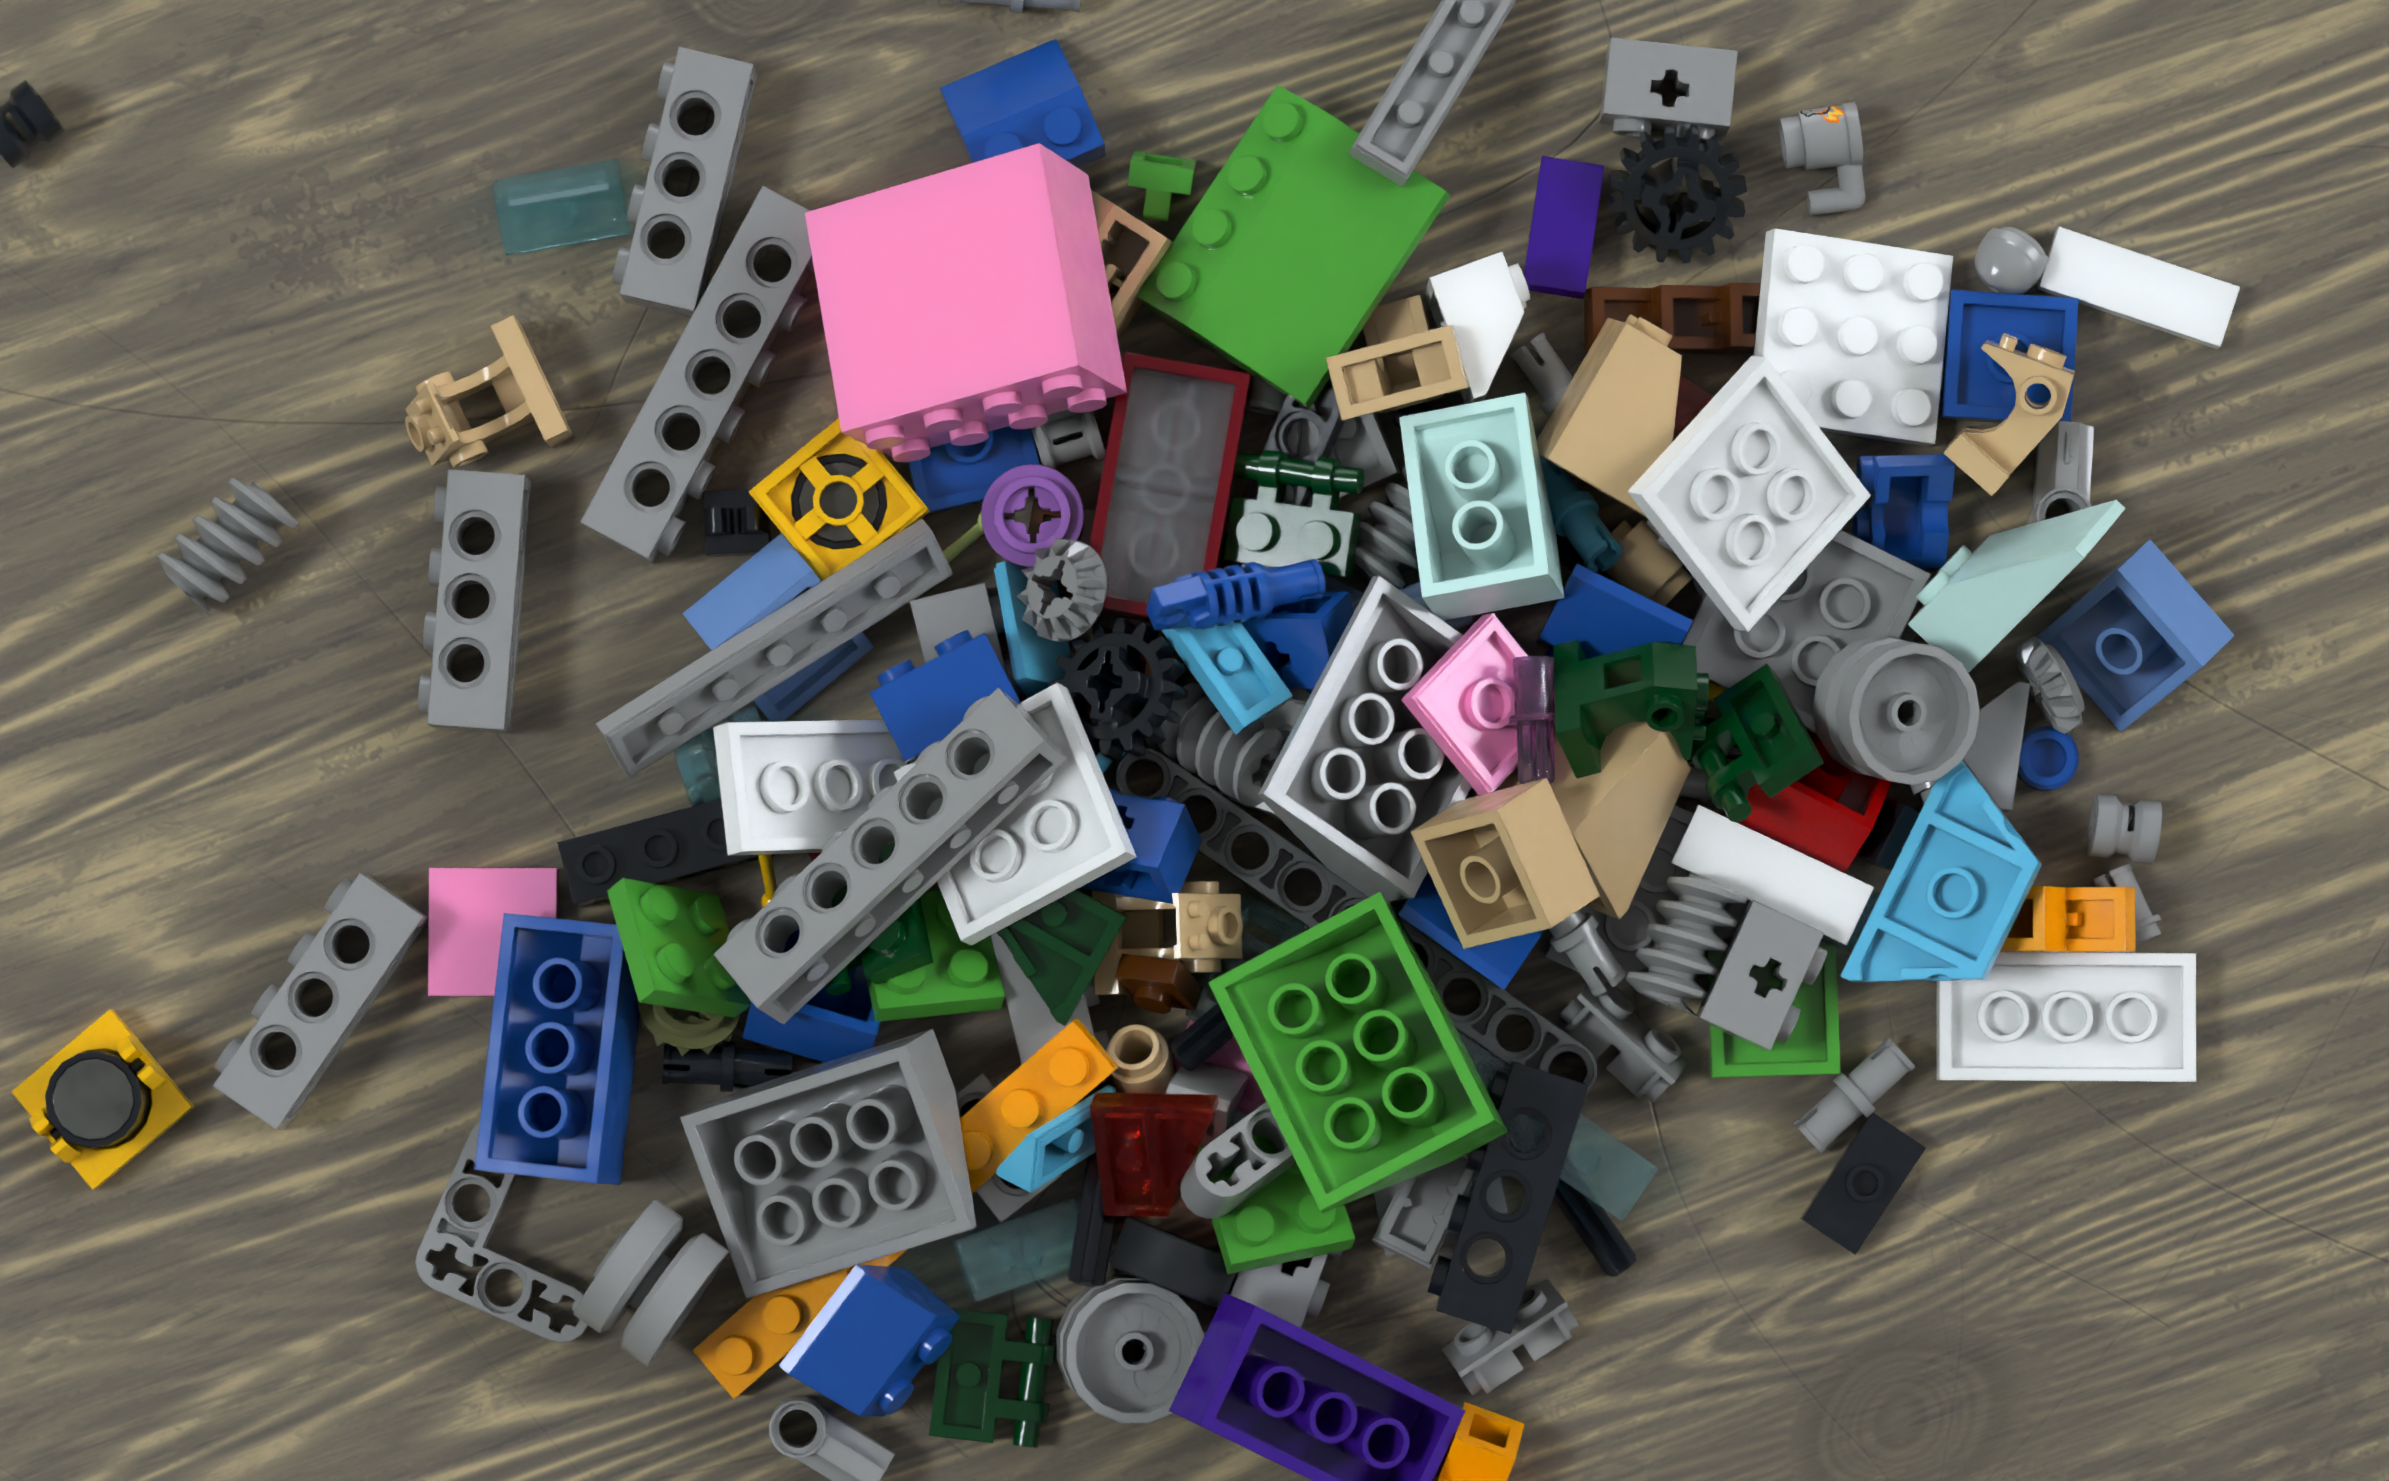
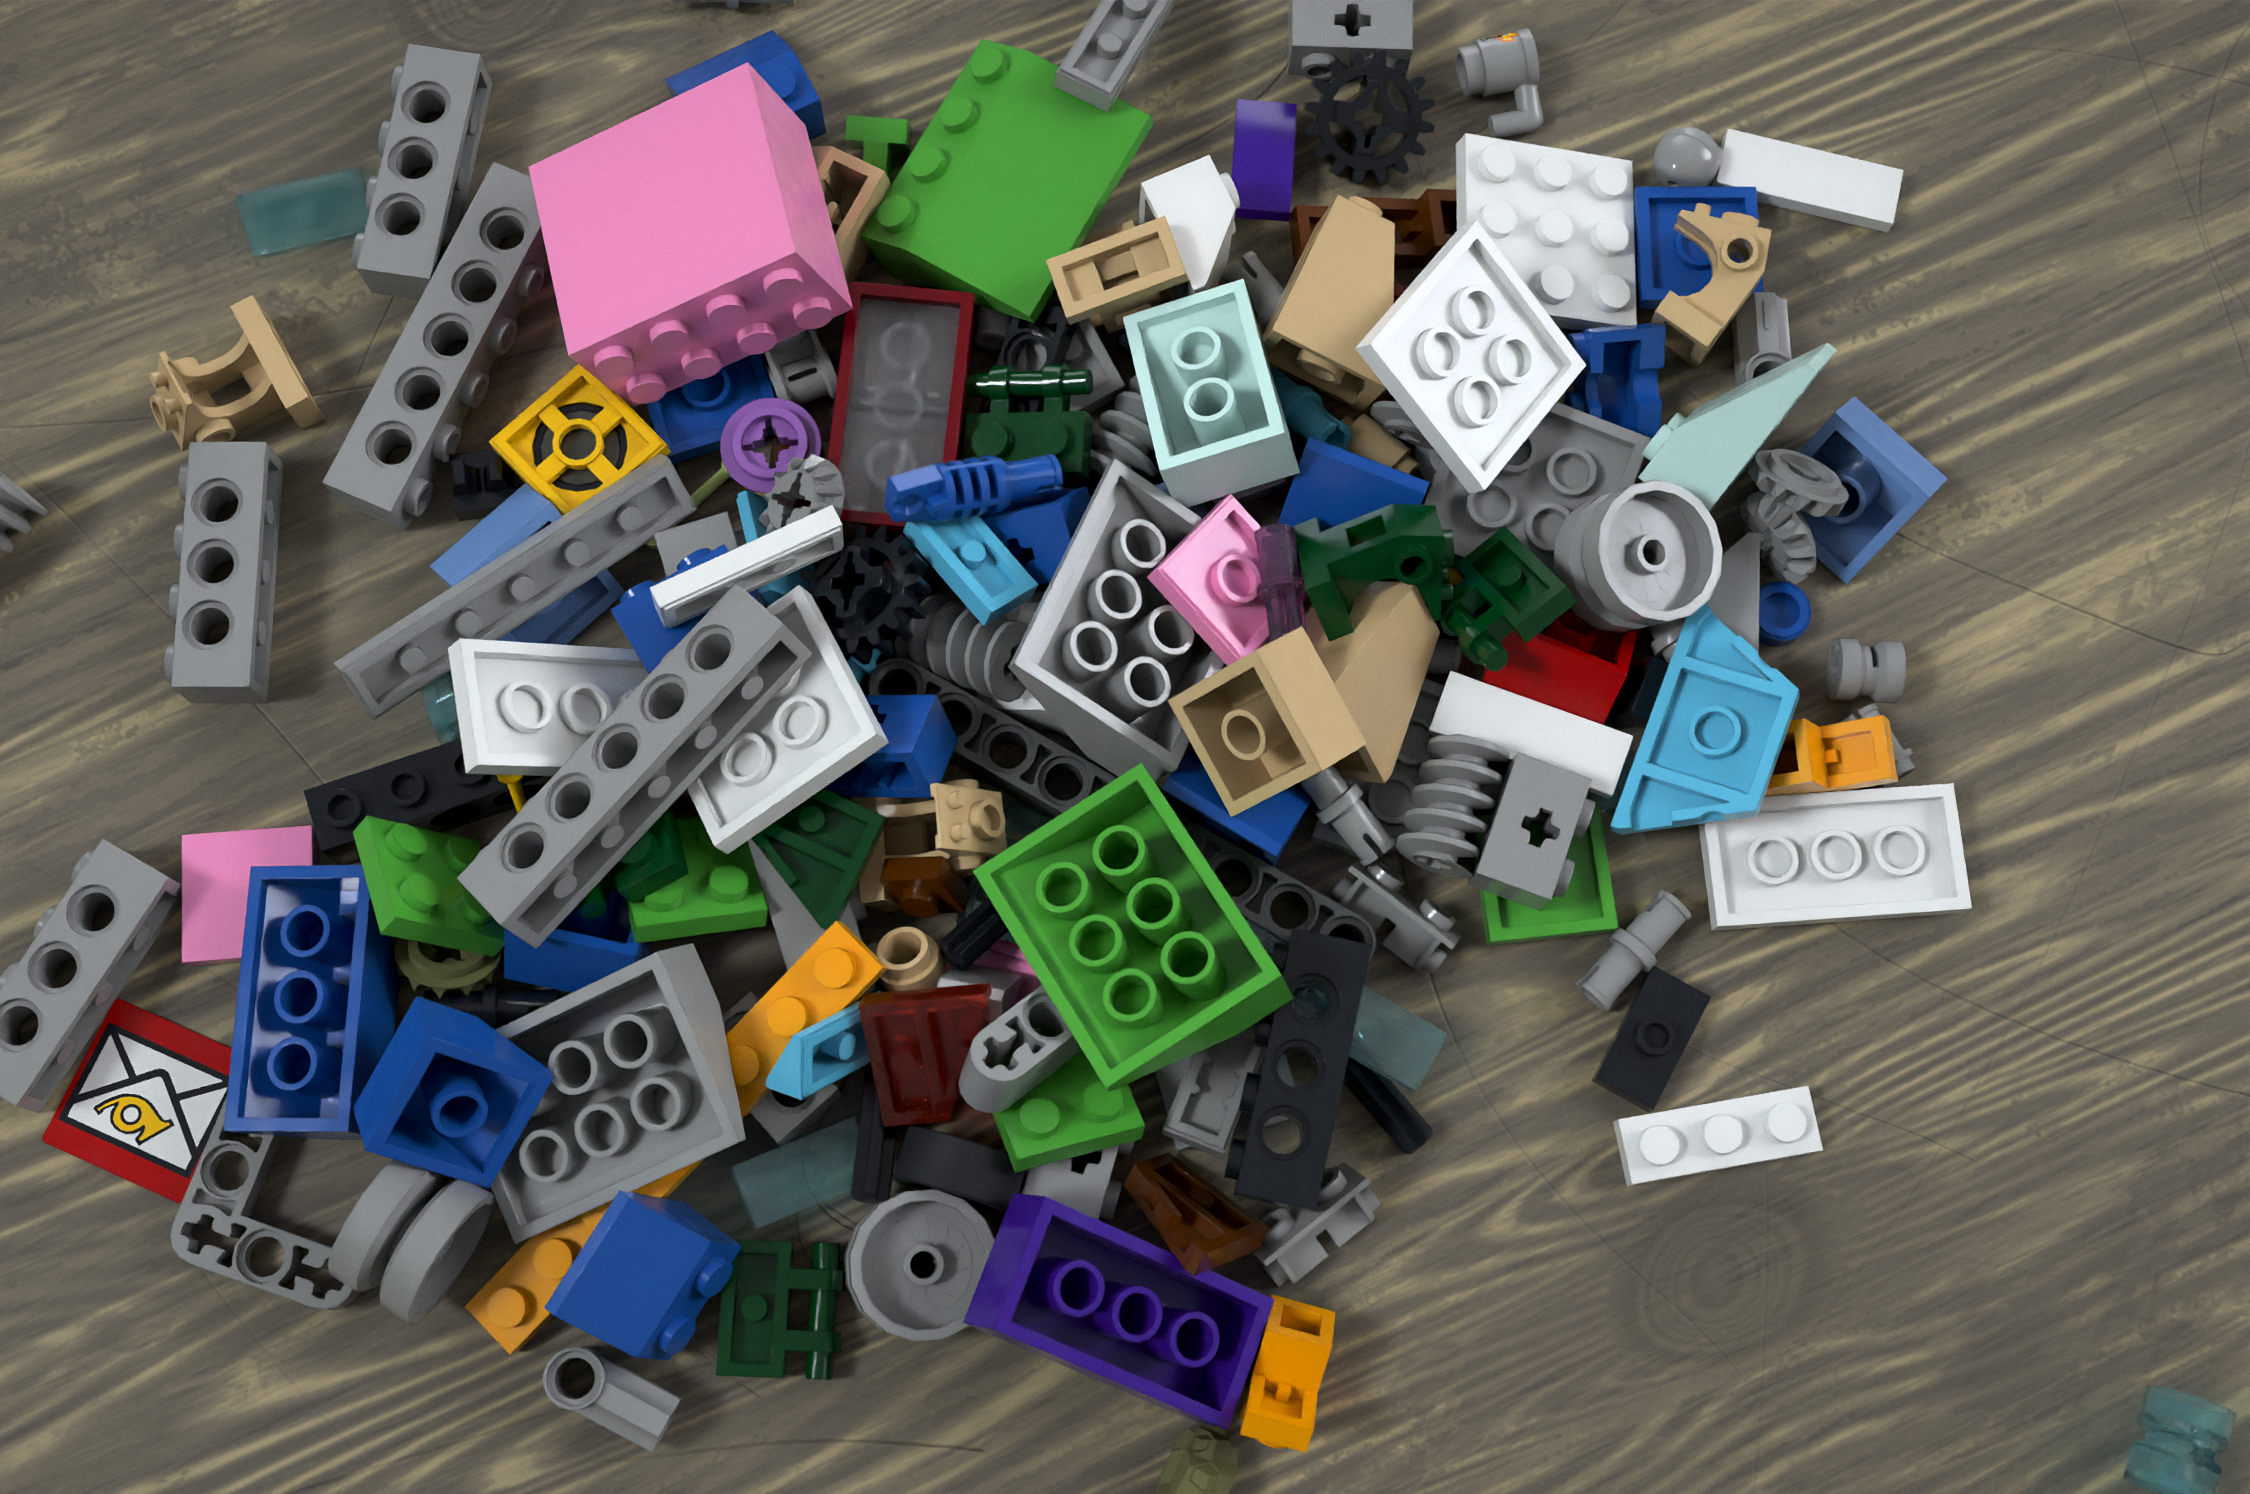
camera: 10 degrees left, 10 degrees down
(389, 1125) = (143, 1100): none -> sticker
(695, 1157) = (449, 1095): none -> blue slope
(1010, 667) = (749, 566): none -> white tile
(1394, 1323) = (1192, 1214): none -> reddish brown wing
(1917, 1283) = (1717, 1135): none -> white plate
(2072, 639) = (1799, 482): none -> light grey gear

